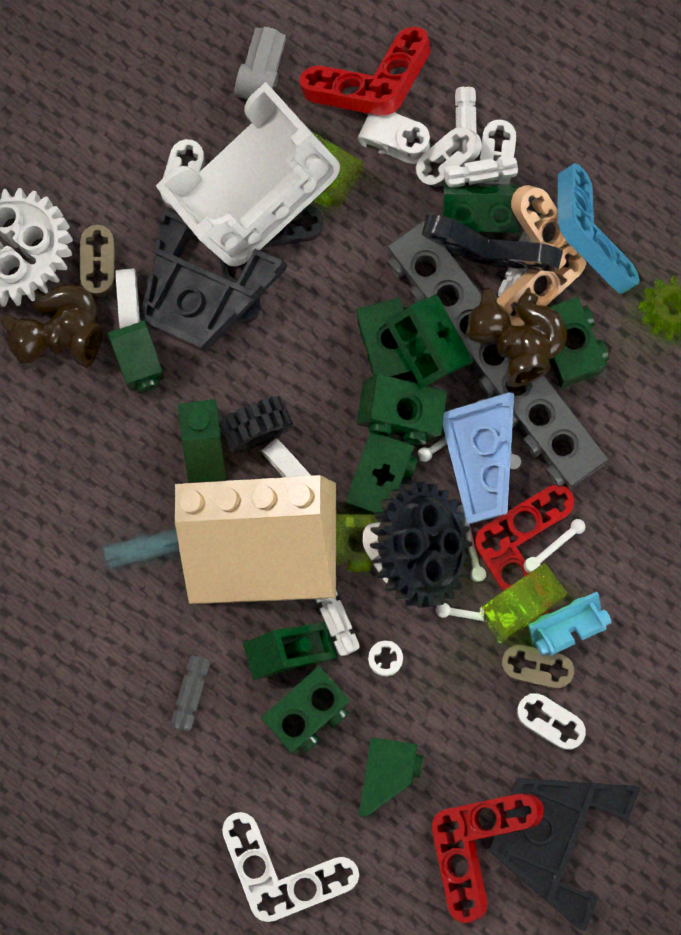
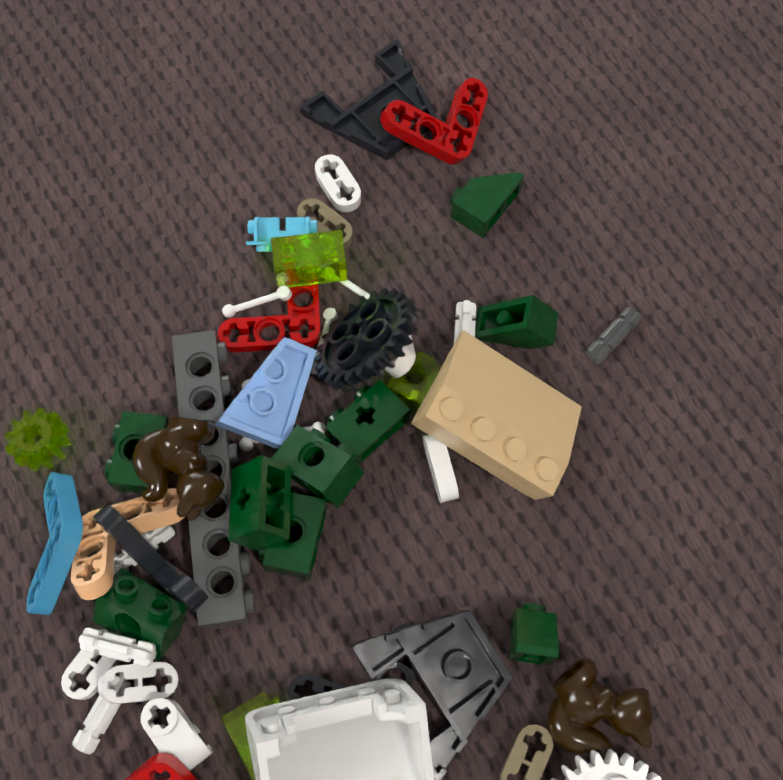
camera: 155 degrees left, 10 degrees down
(127, 297) = (516, 699): white beam -> none
(141, 548) = (604, 467): clear light blue pin -> none
(202, 441) = (507, 533): dark green slope -> none
(256, 424) = (453, 515): black tyre -> none
(269, 881) = (612, 172): white beam -> none
(299, 703) = (528, 278): dark green brick -> none
(376, 651) = (435, 277): white bush -> none

